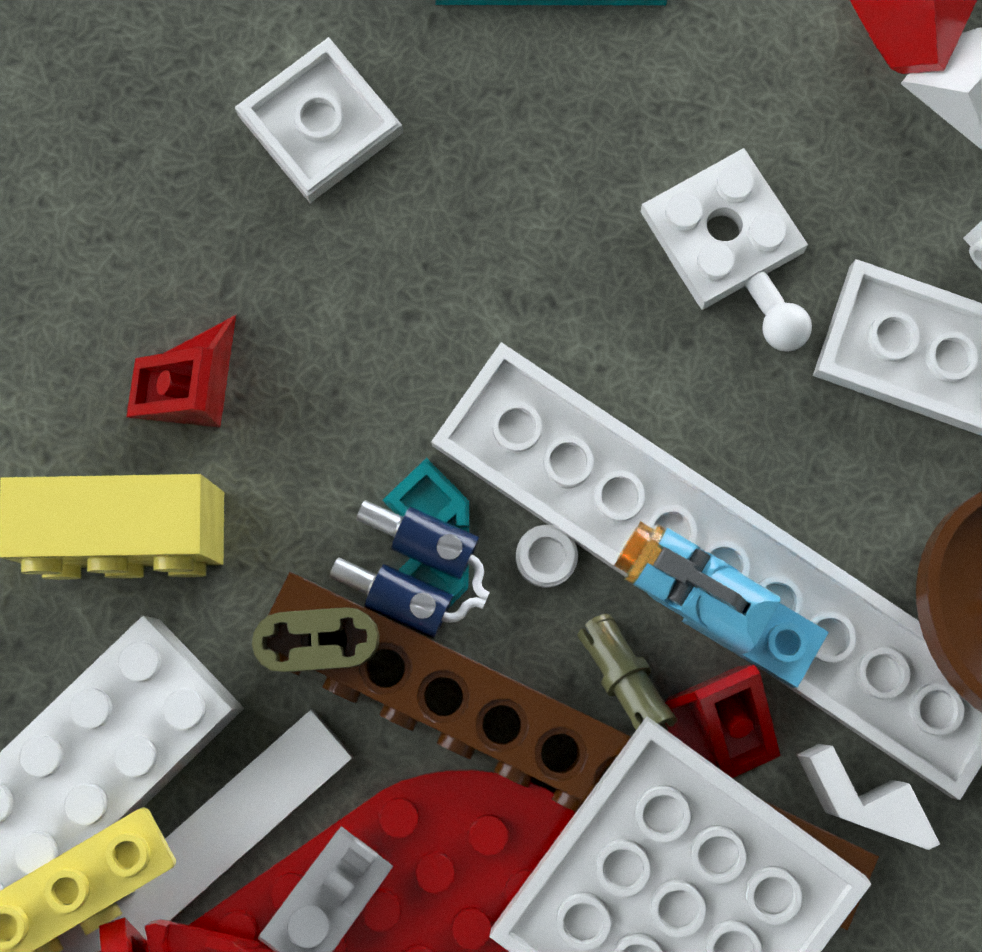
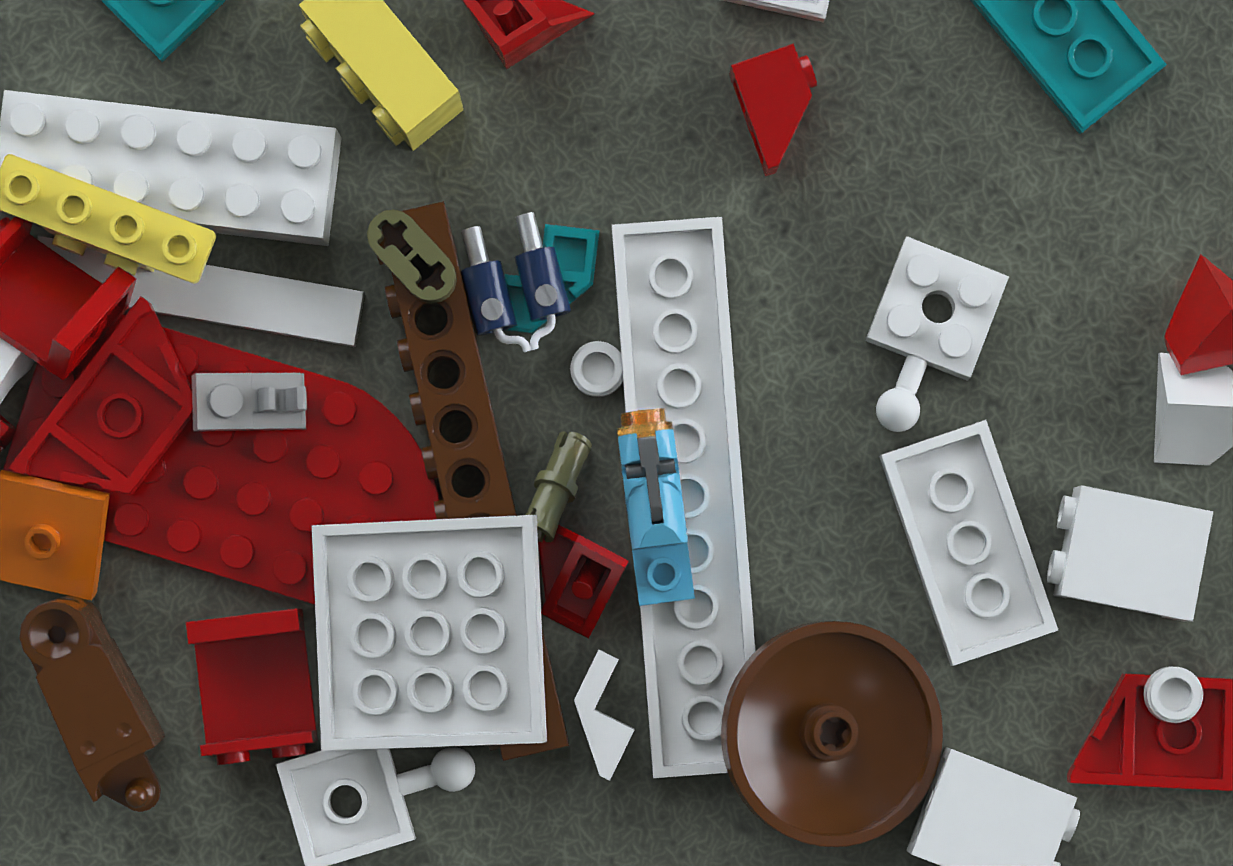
camera: 50 degrees right, 5 degrees up
(436, 222) = (773, 99): none -> red slope

